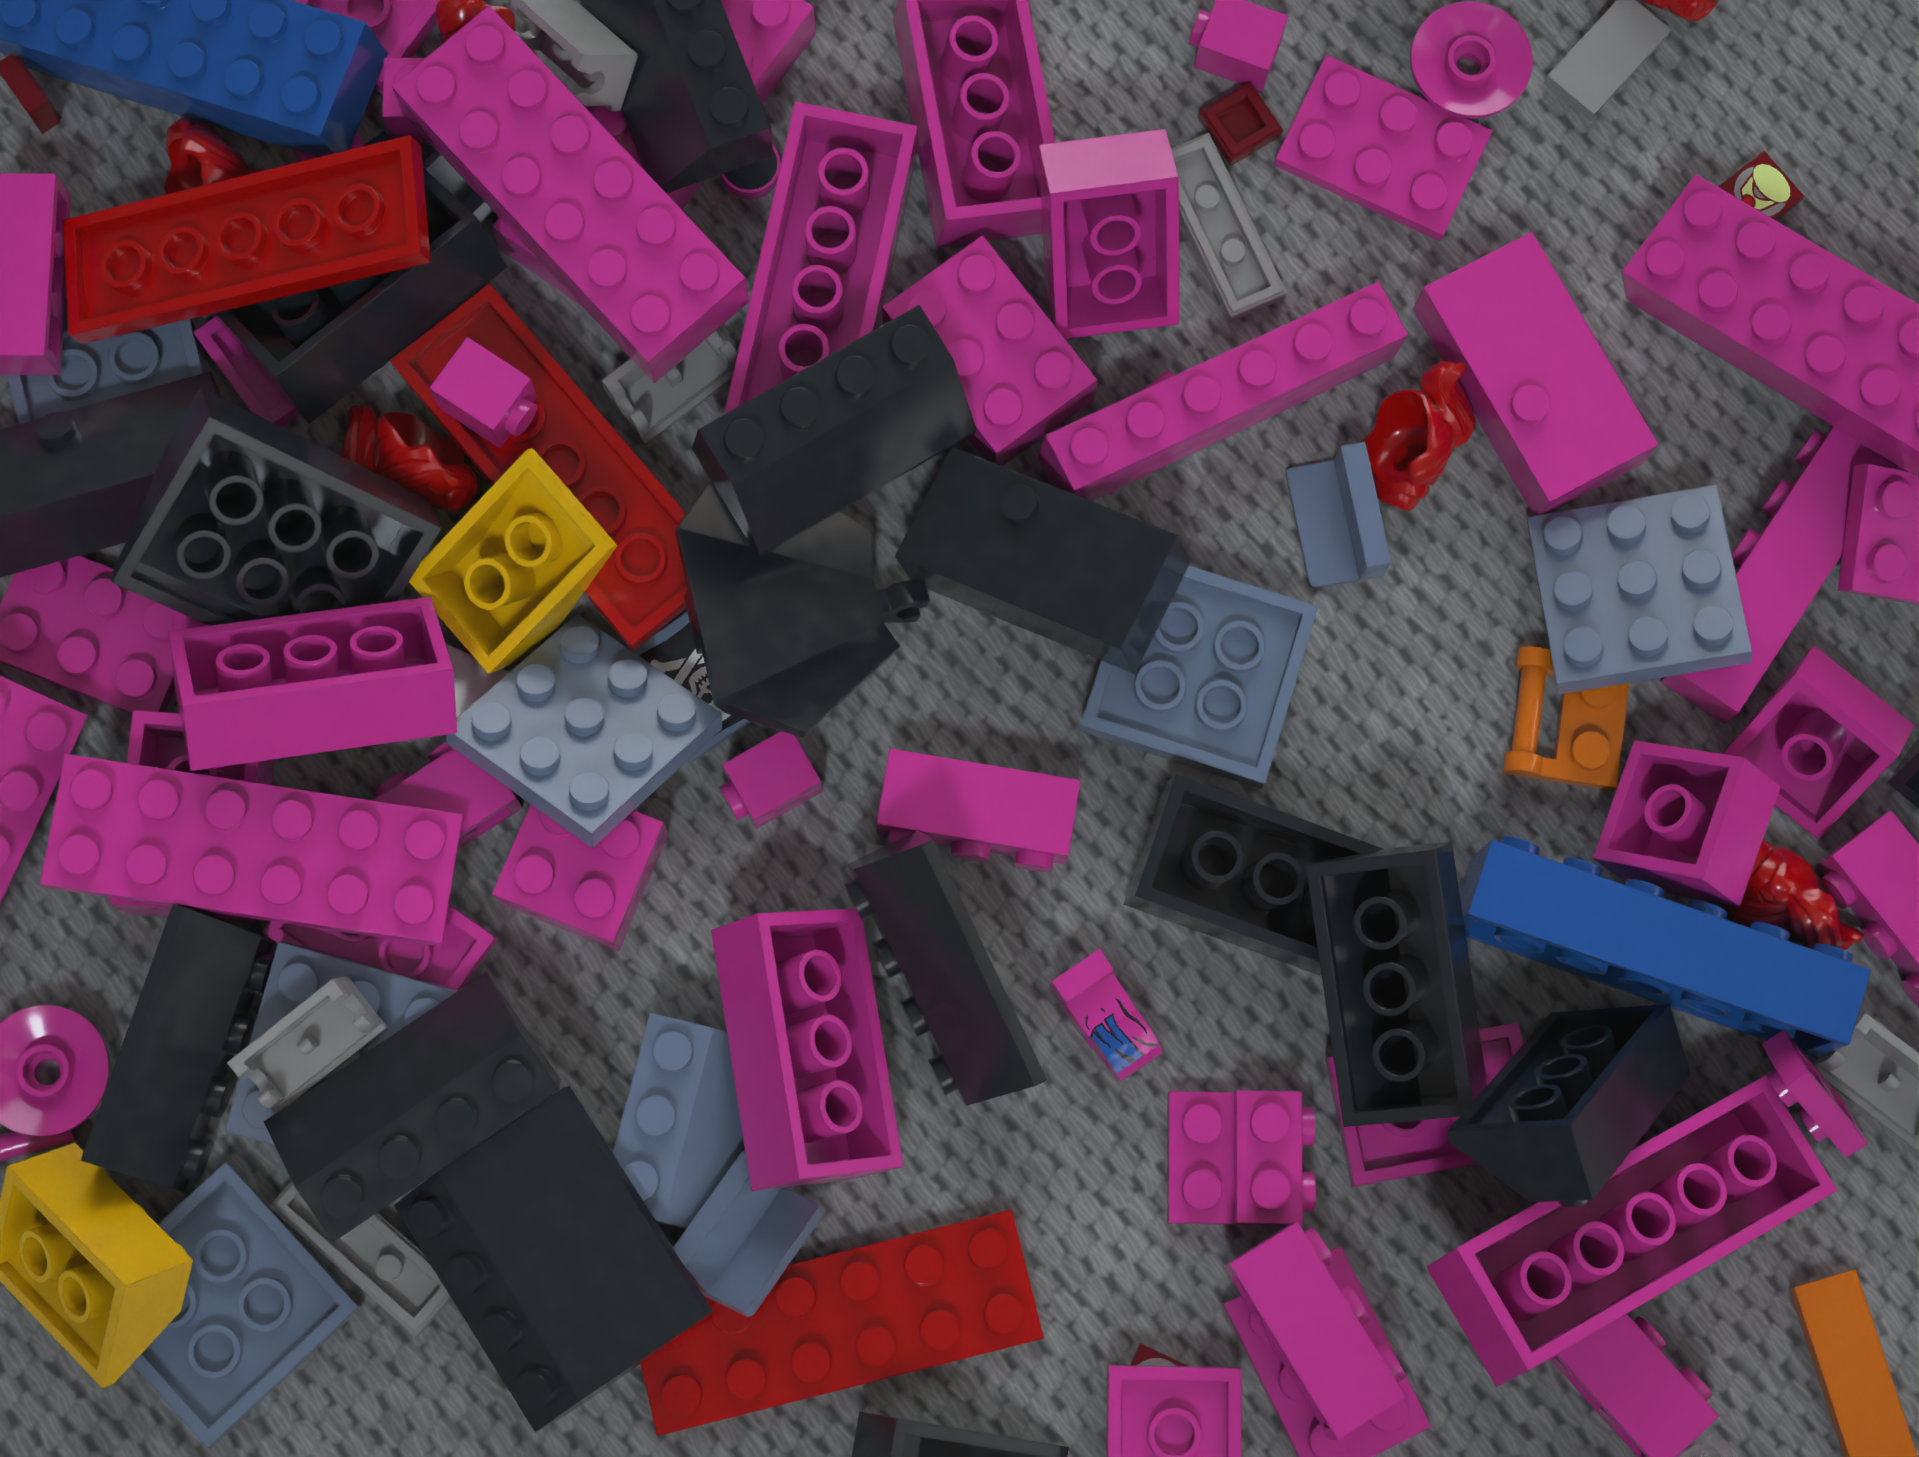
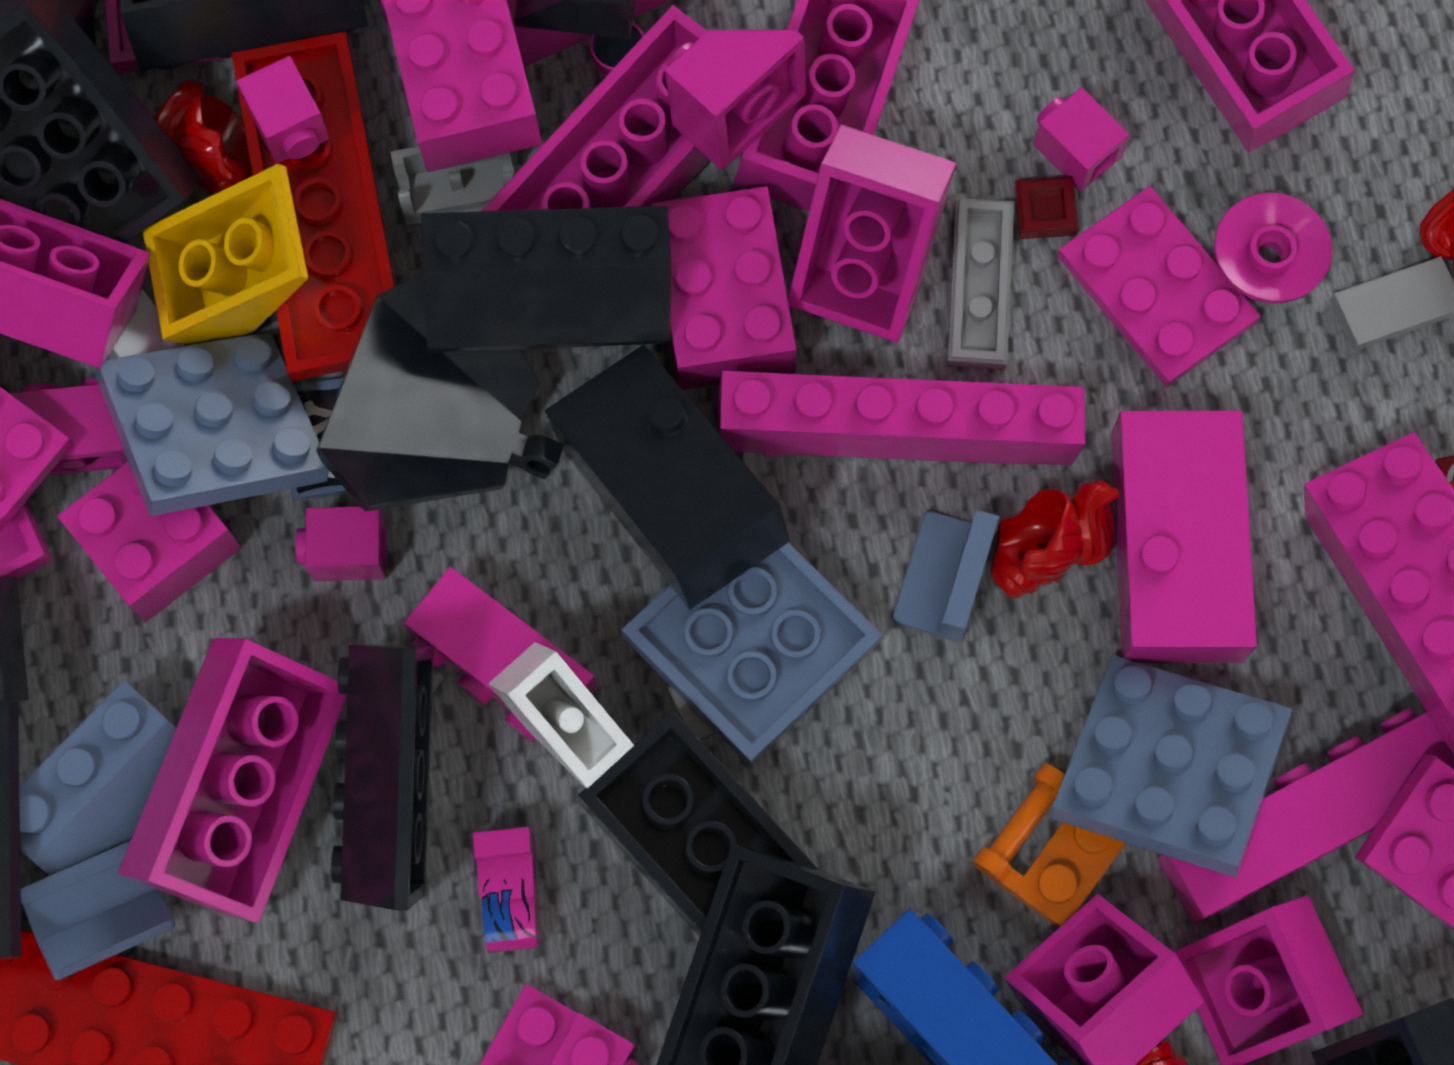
camera: 35 degrees right, 5 degrees down
(914, 160) = (734, 87): none -> dark pink slope
(1078, 829) = (561, 713): none -> white slope

